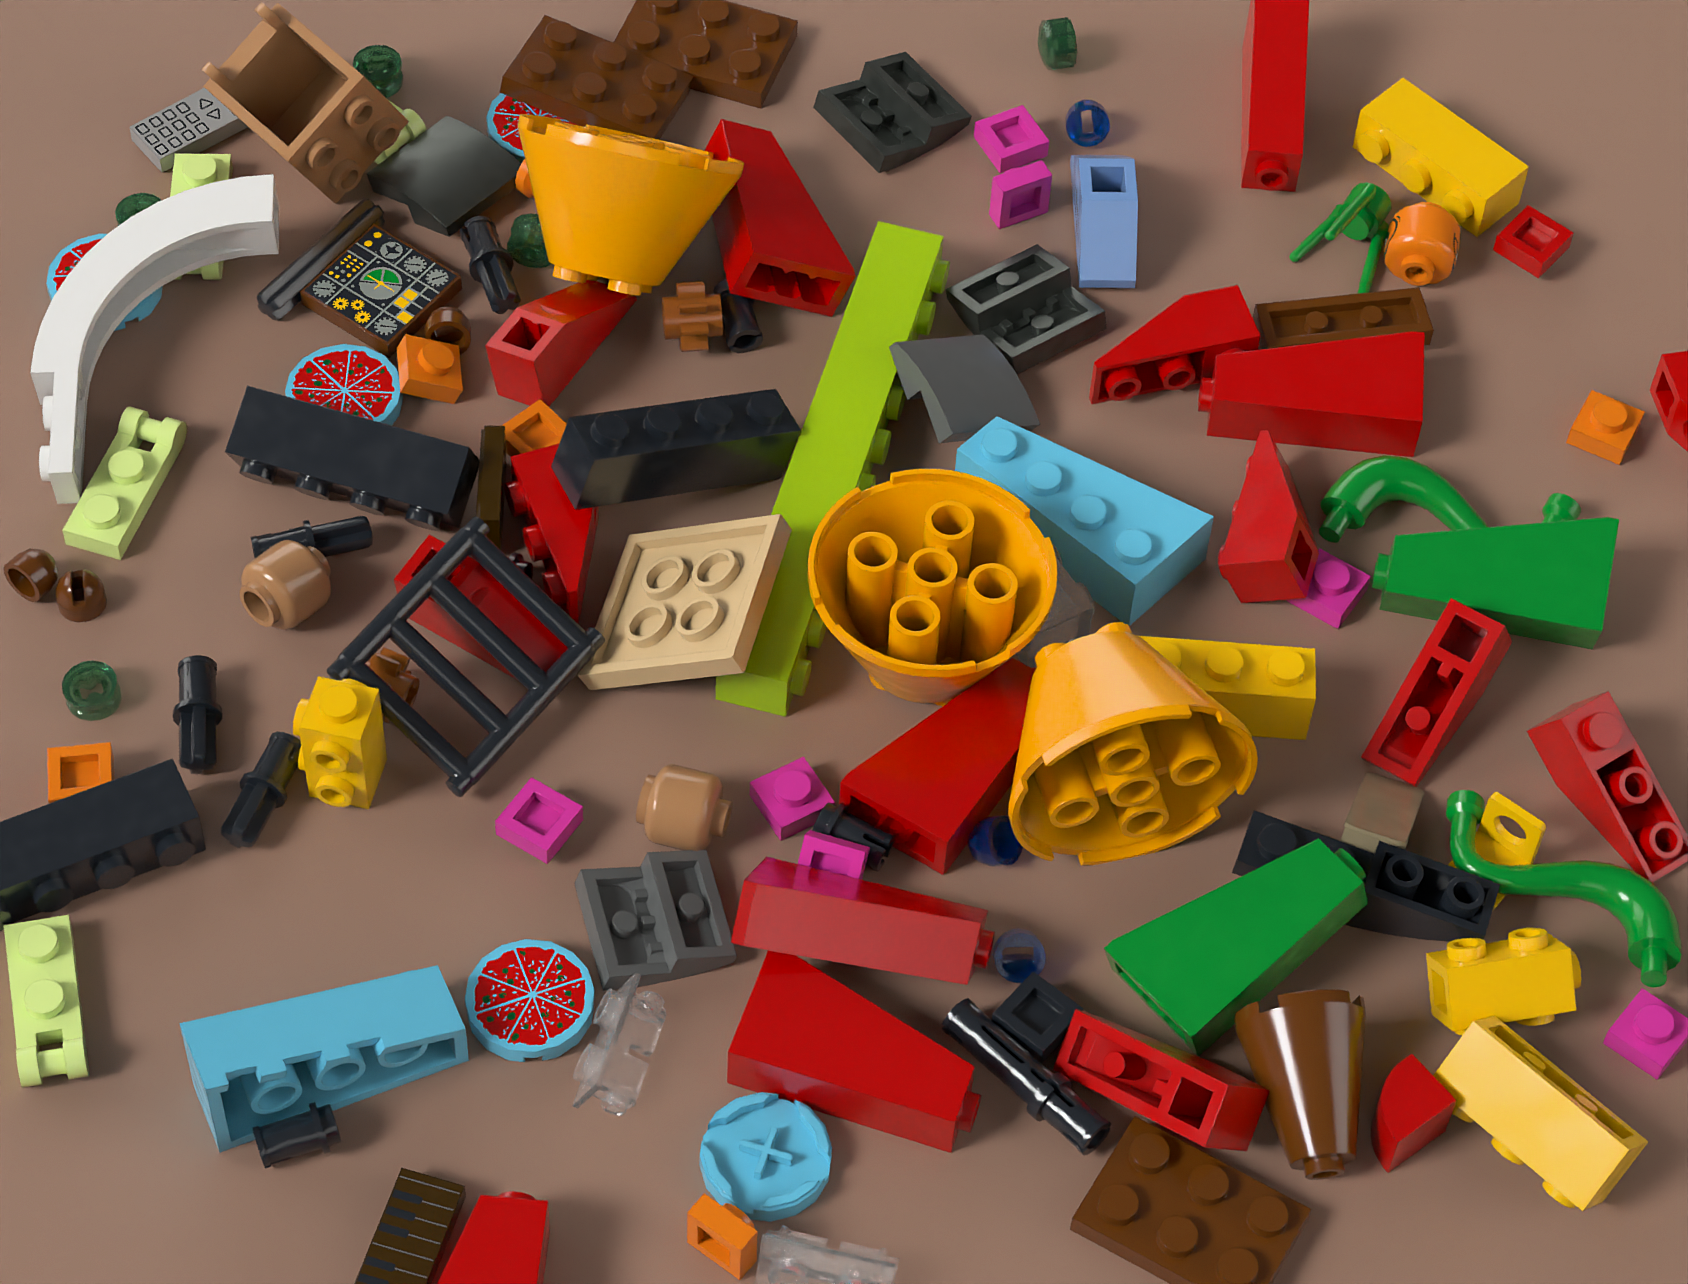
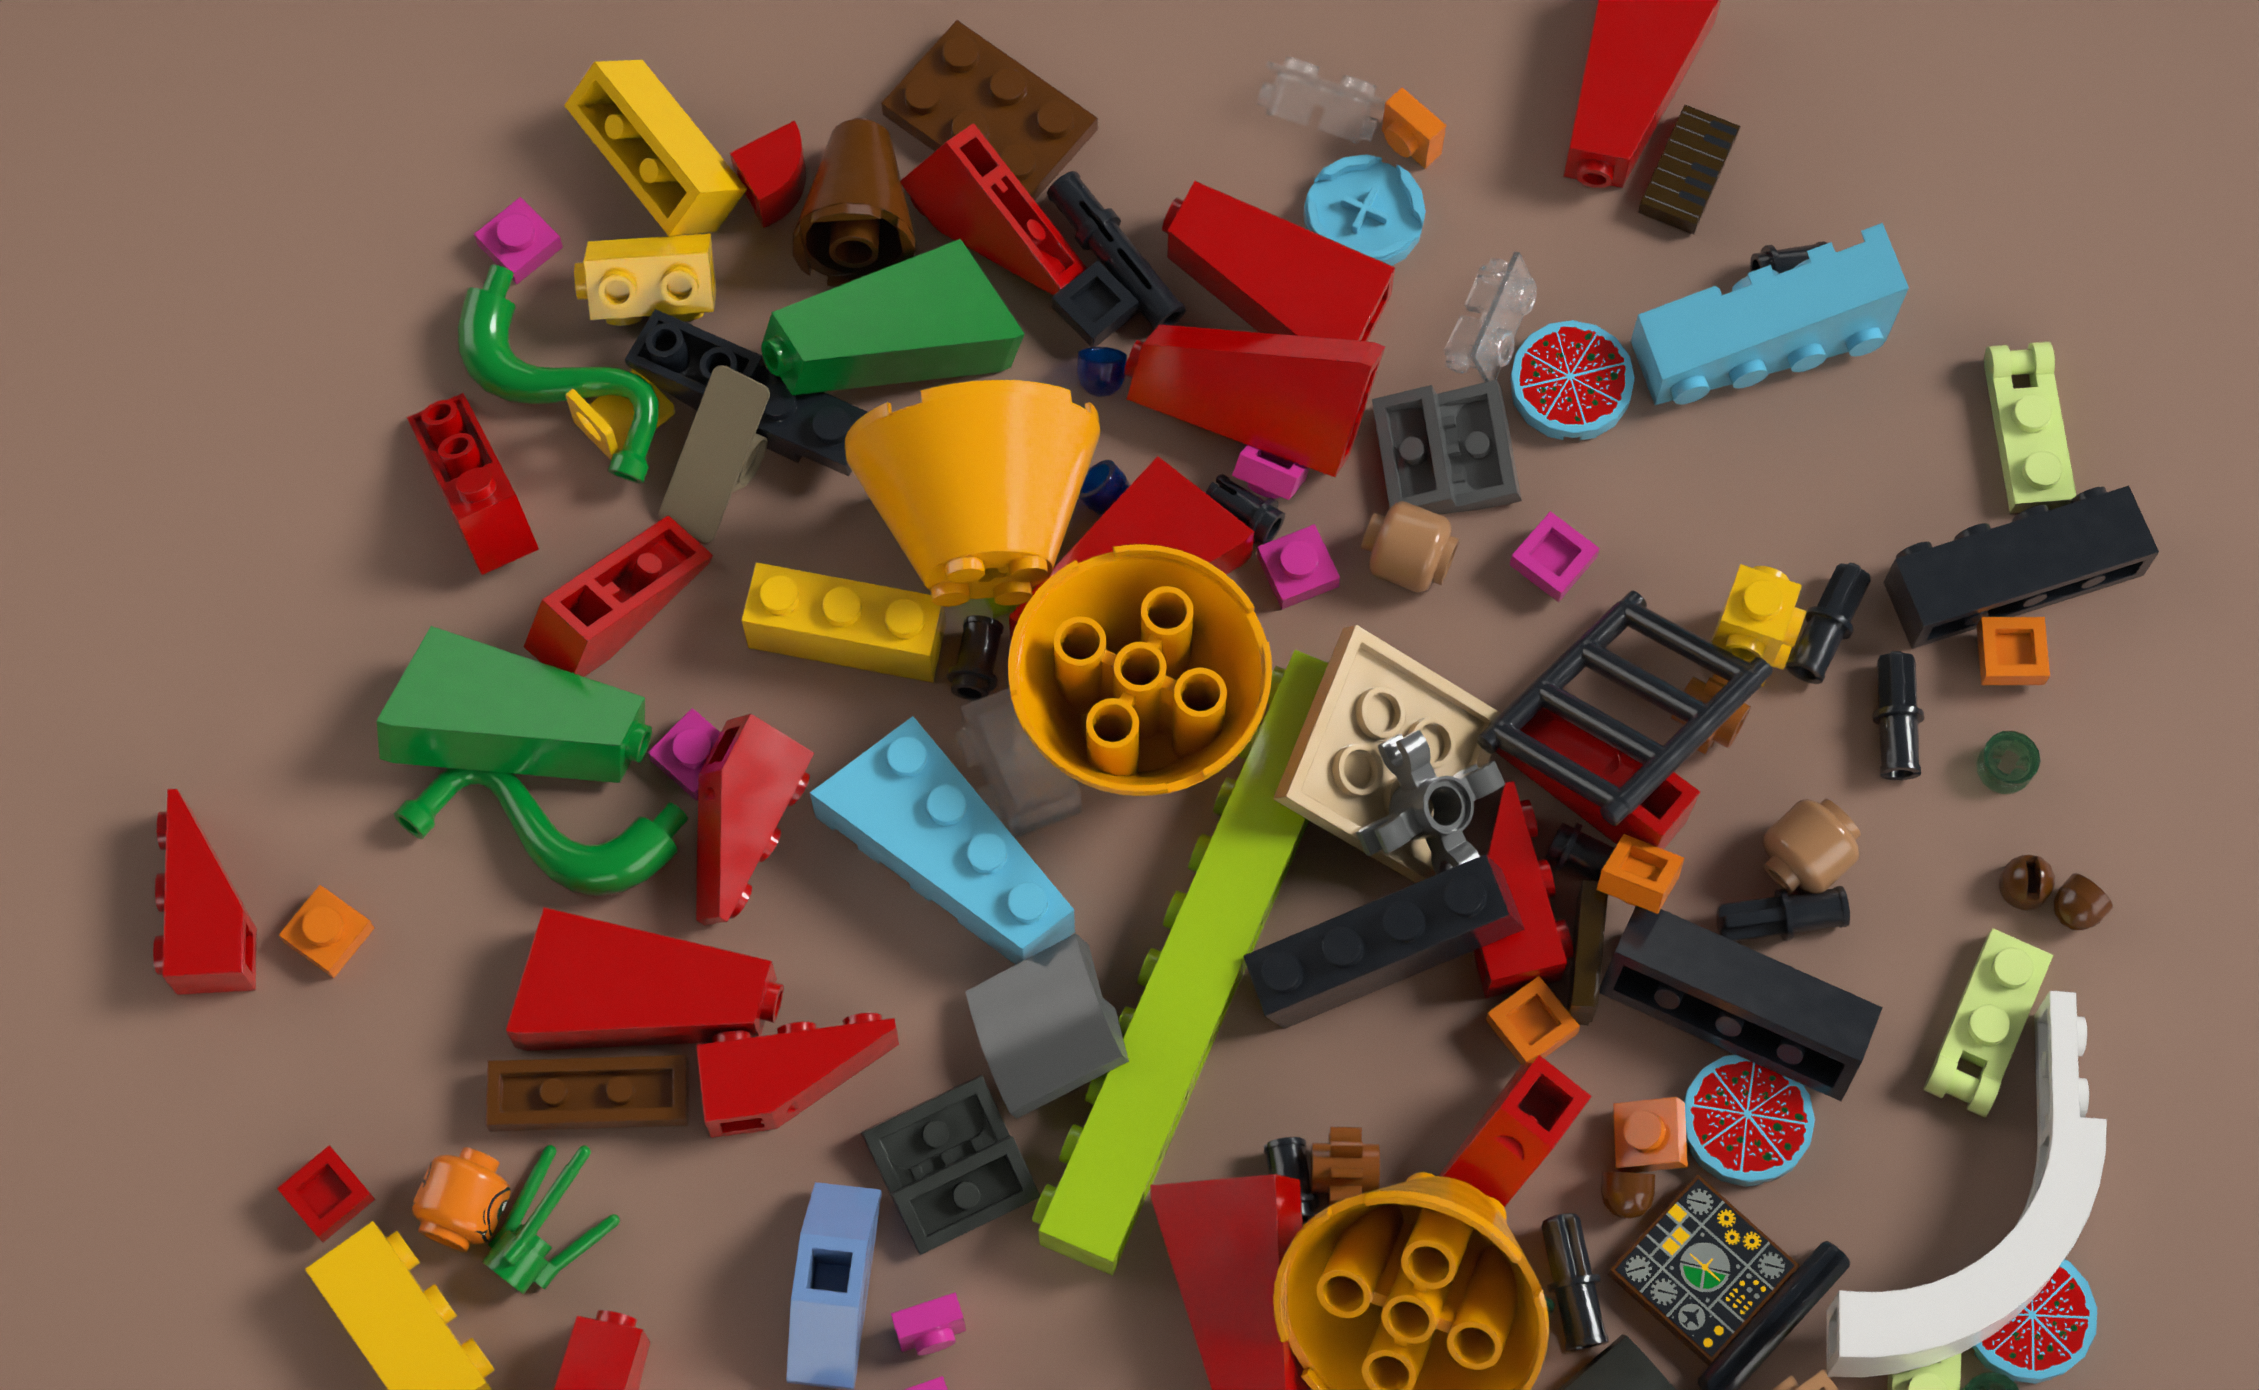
camera: 170 degrees left, 15 degrees up
(444, 512) = (1640, 873): none -> orange plate
(644, 548) = (1409, 810): none -> dark grey pin

